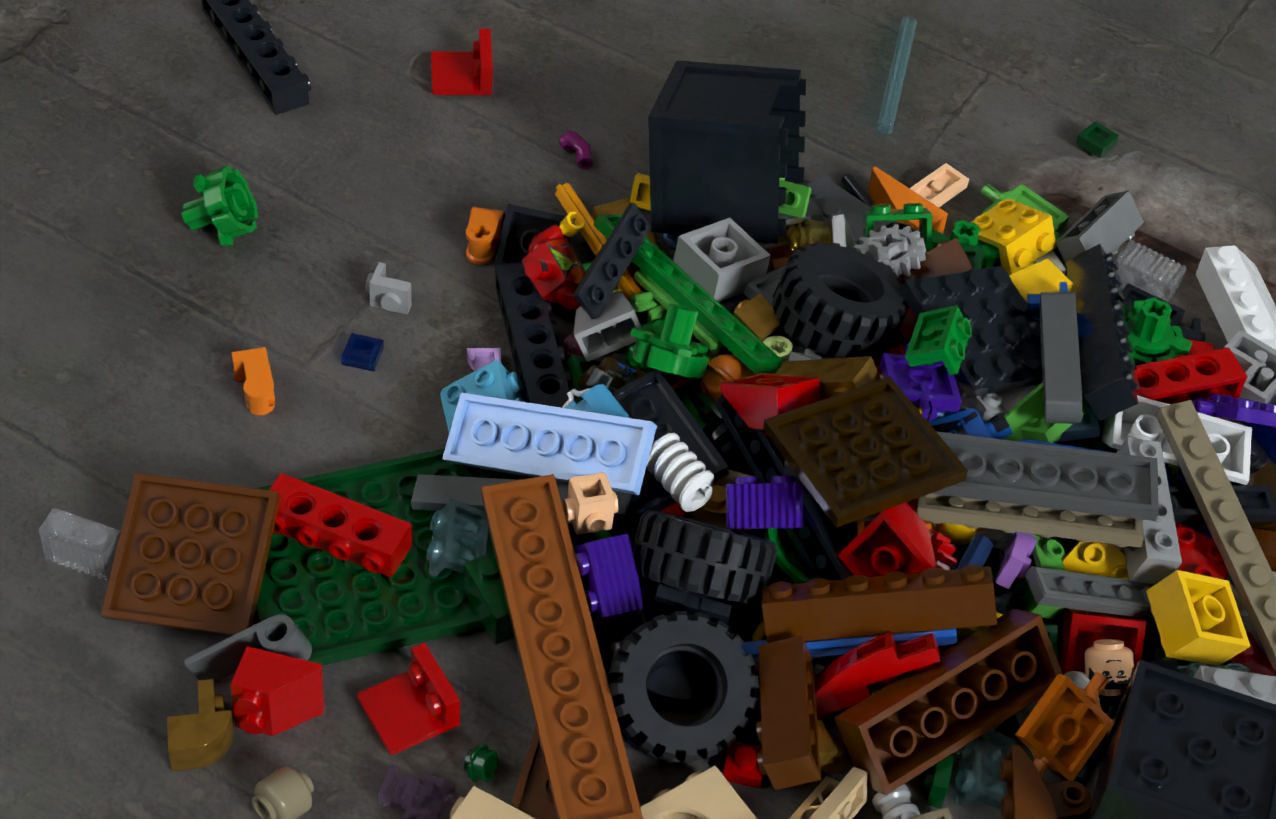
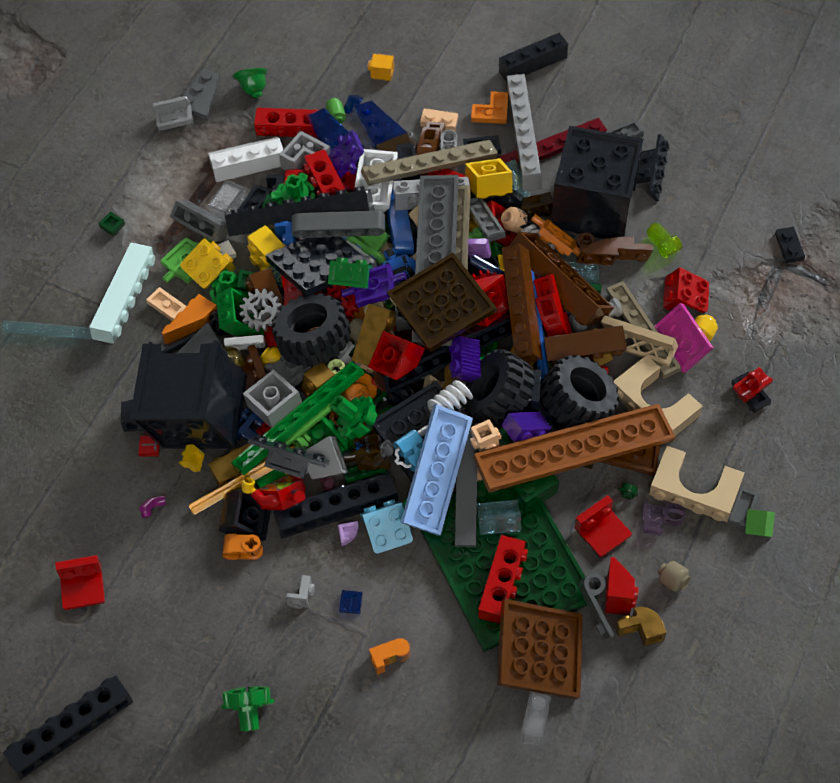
camera: 90 degrees left, 10 degrees up
(957, 134) = (122, 293): none -> light aqua brick

